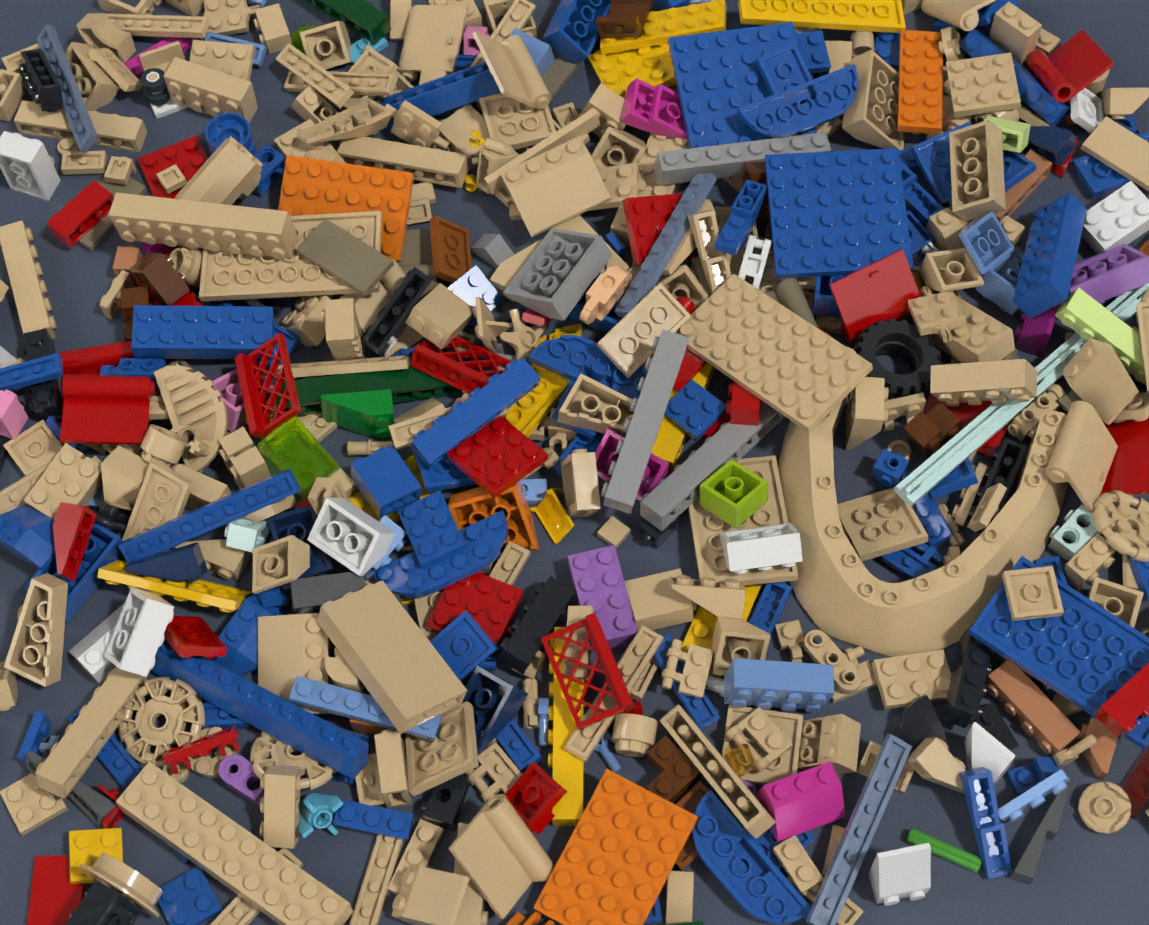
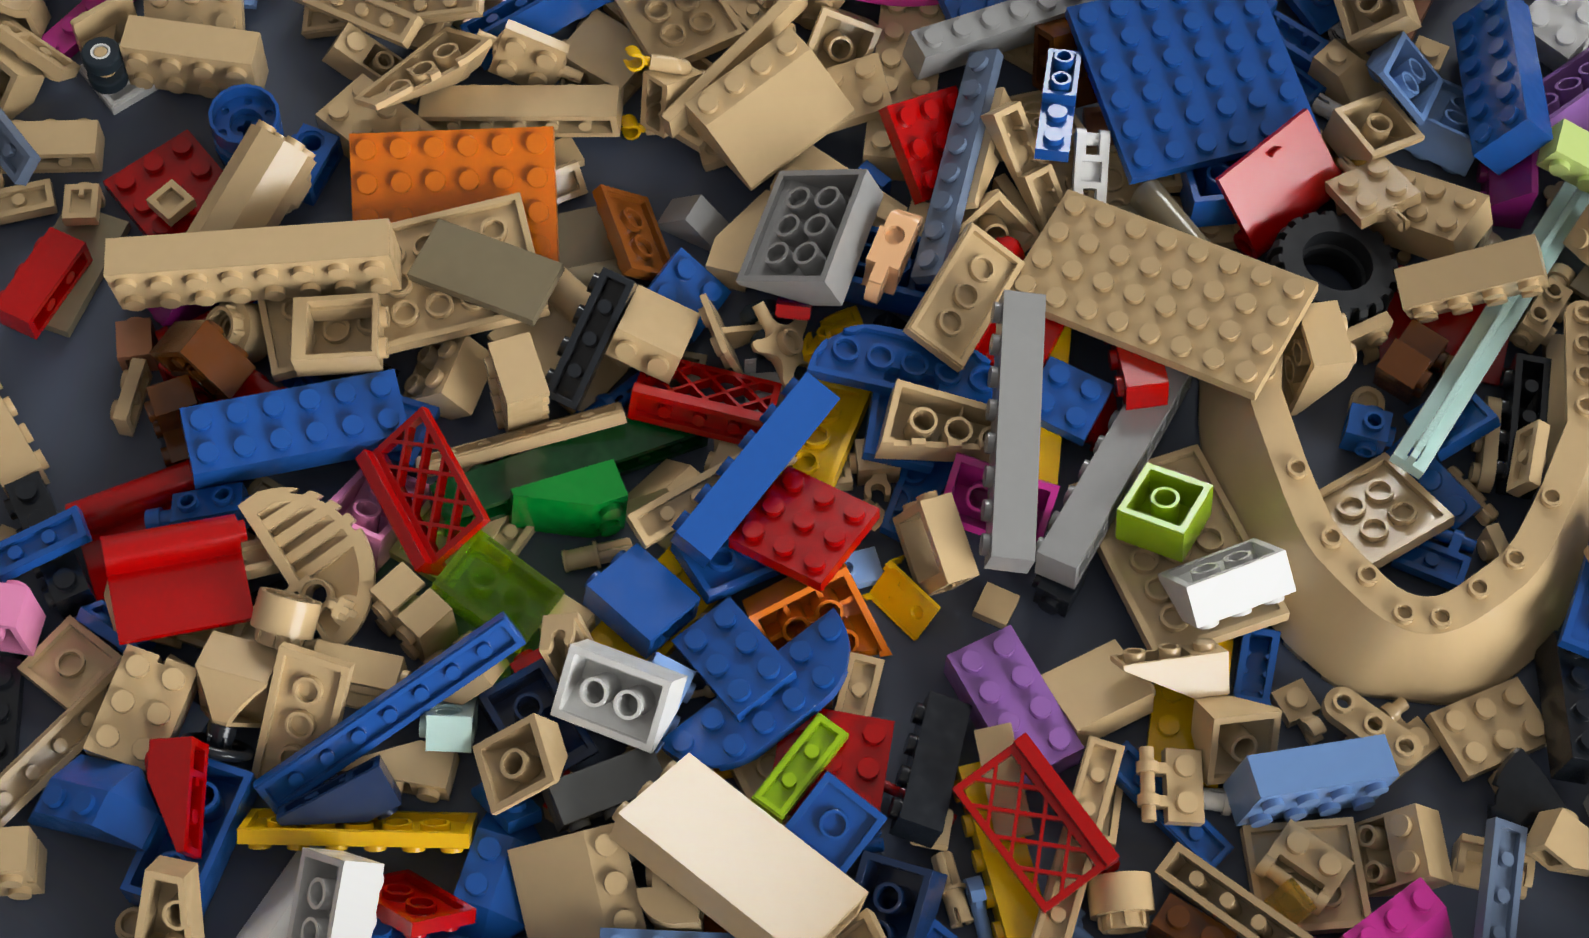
camera: 20 degrees left, 0 degrees up
(223, 270) = (338, 307): none -> tan window
(452, 605) = (800, 767): none -> lime tile

